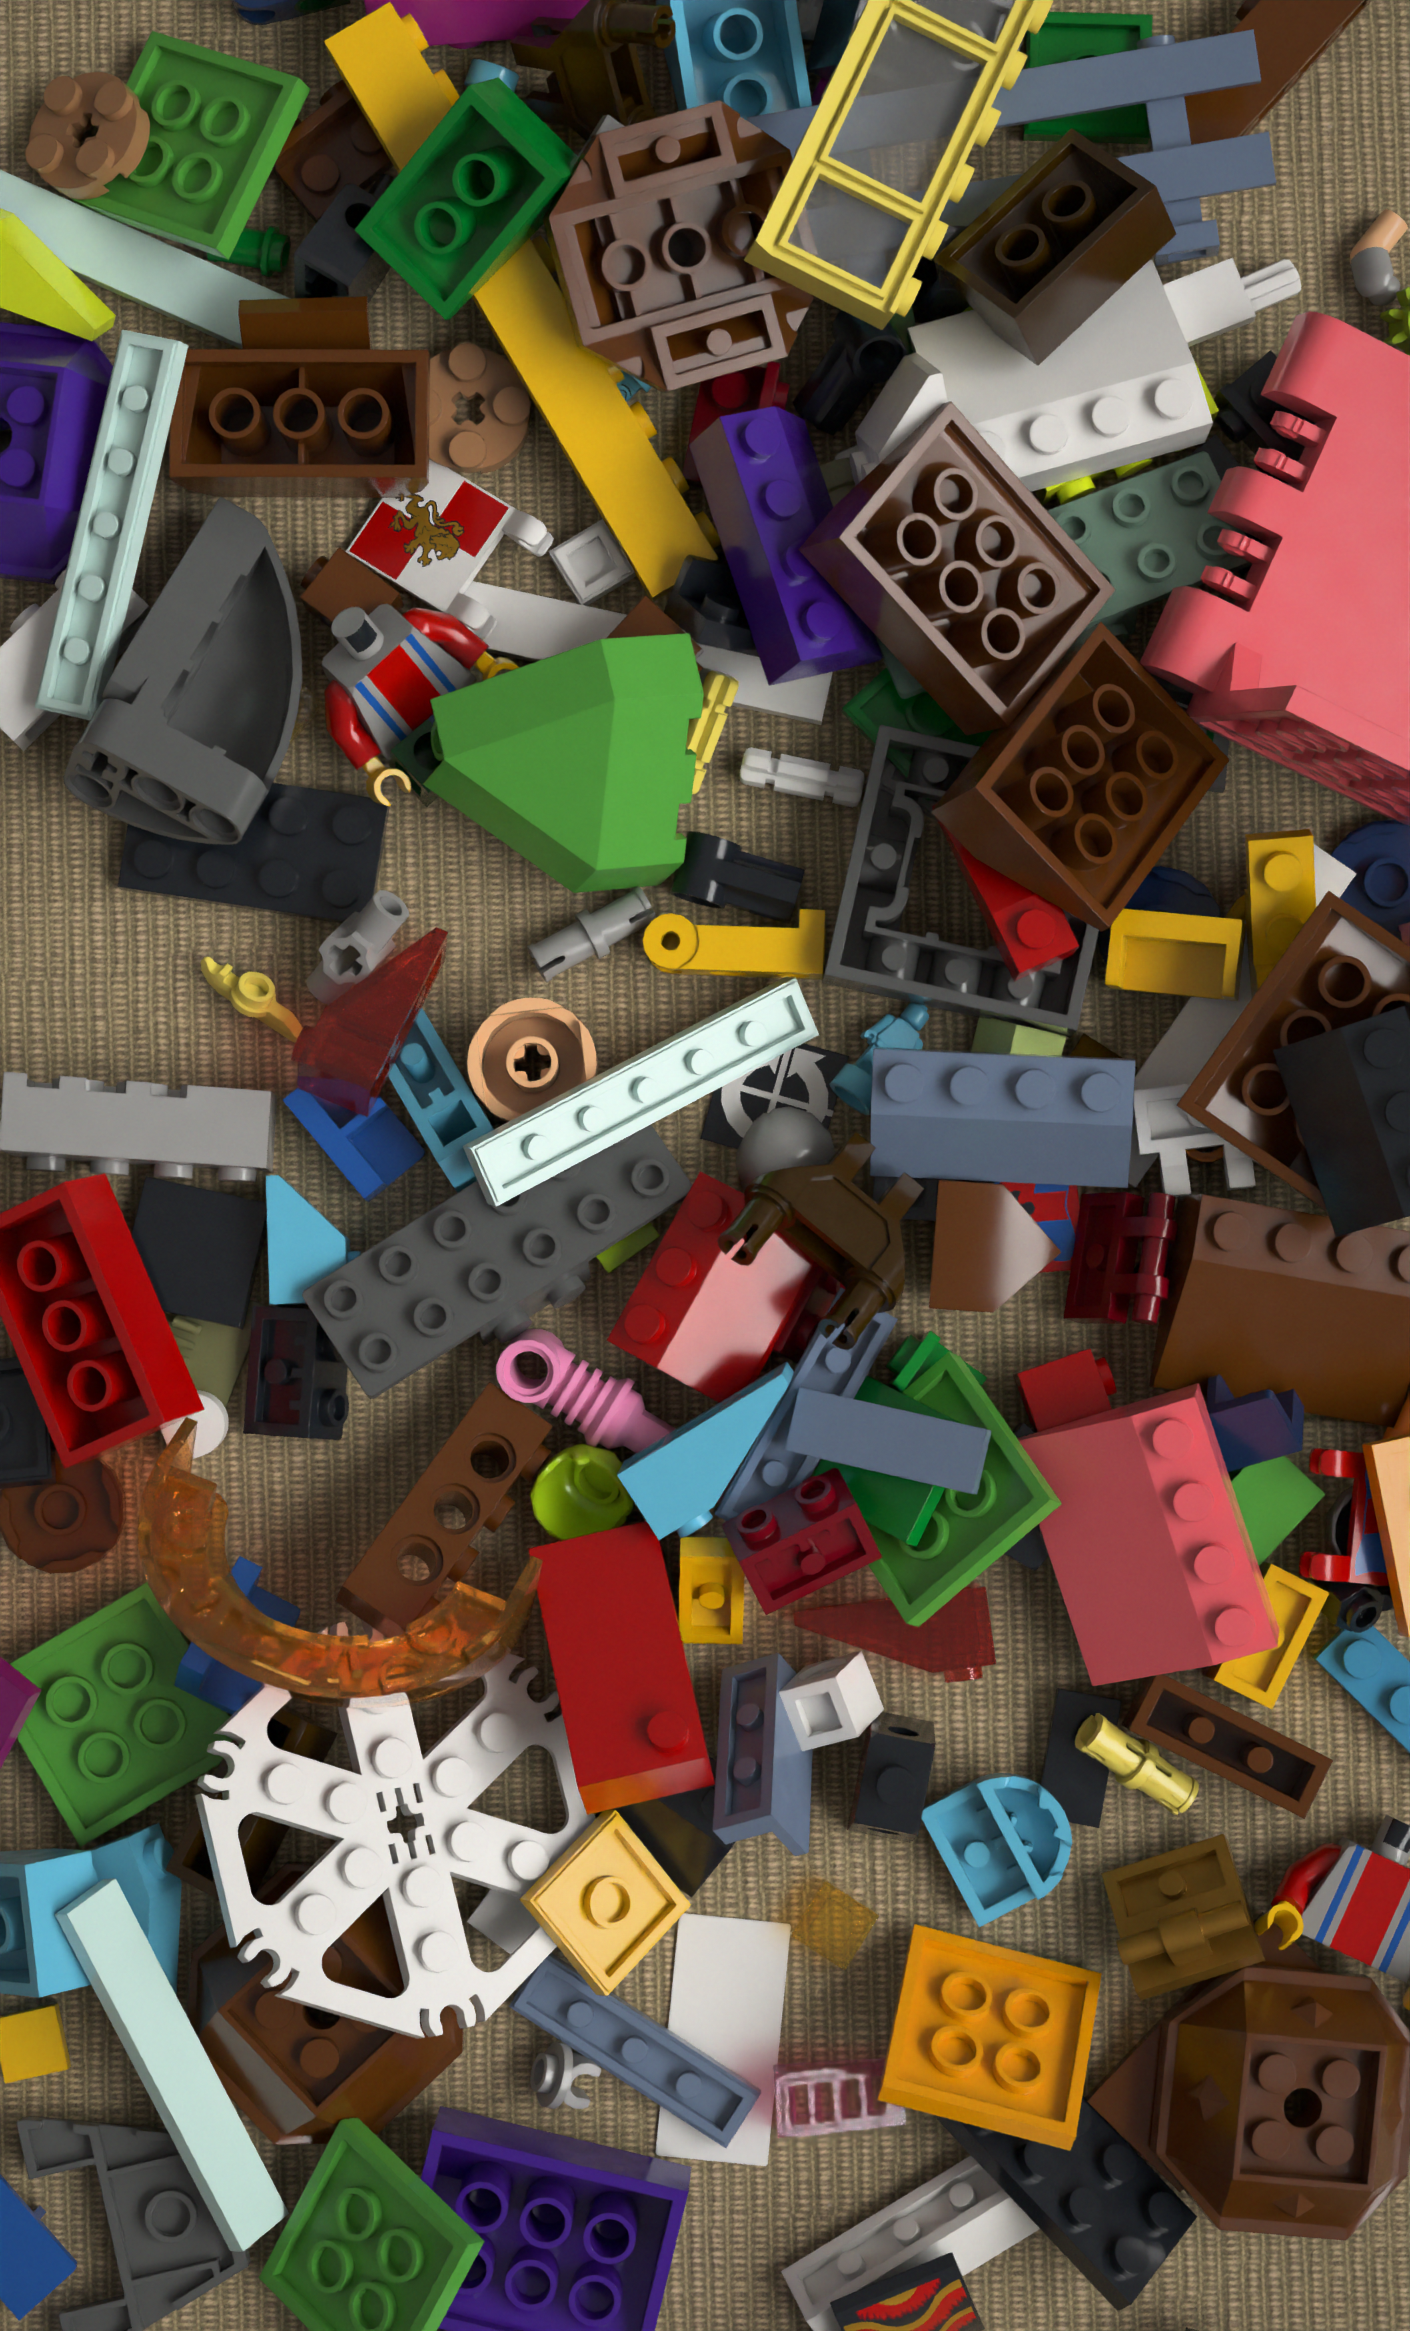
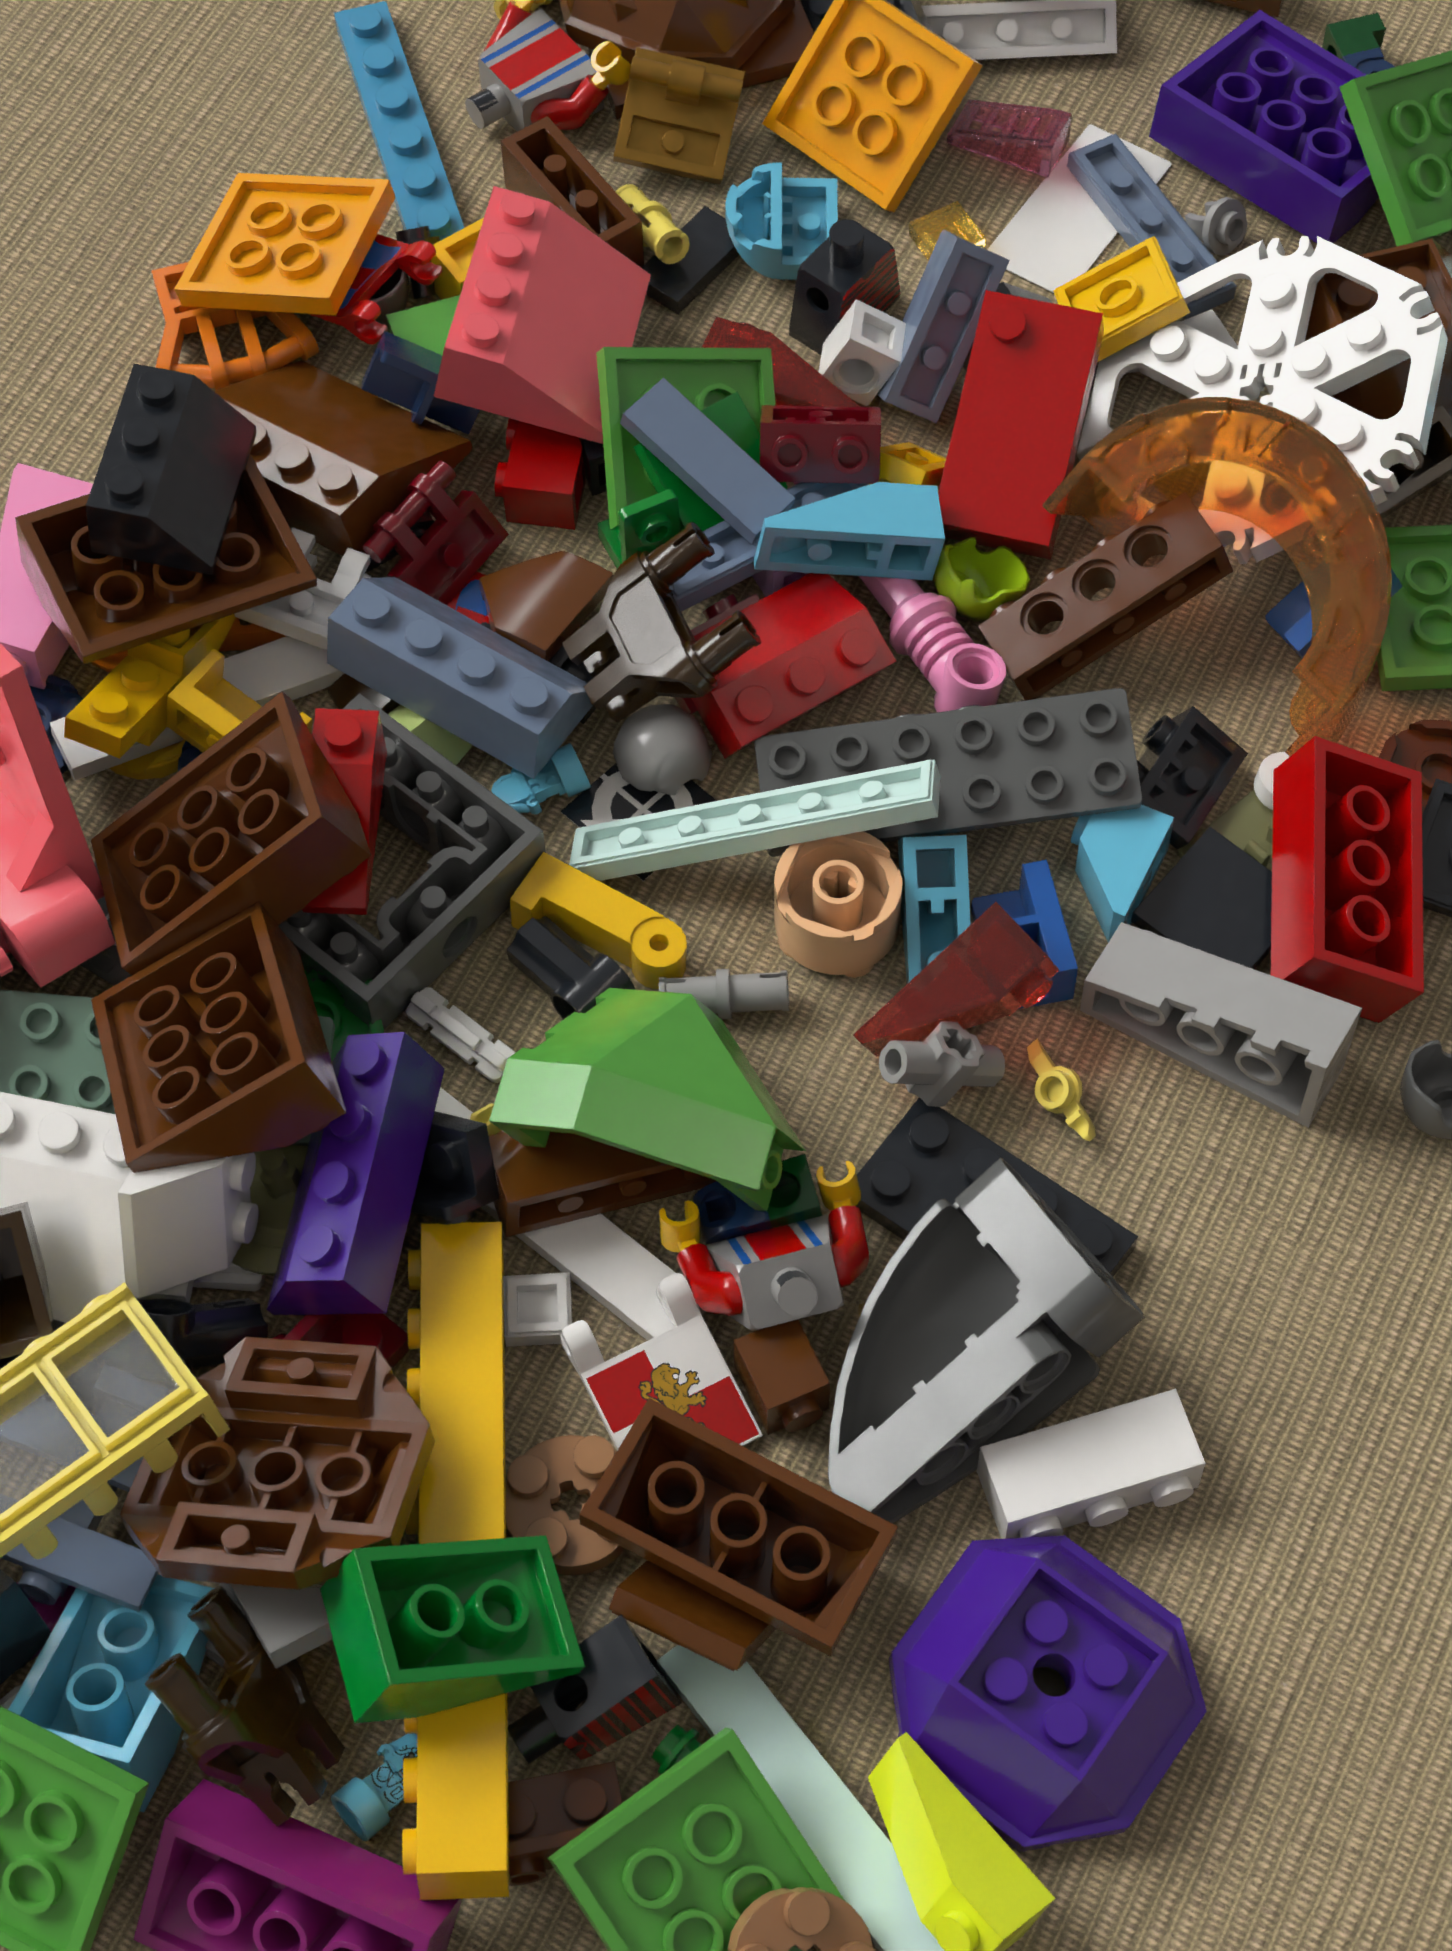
camera: 150 degrees left, 25 degrees down
(111, 524) = (975, 1518): light aqua tile -> none

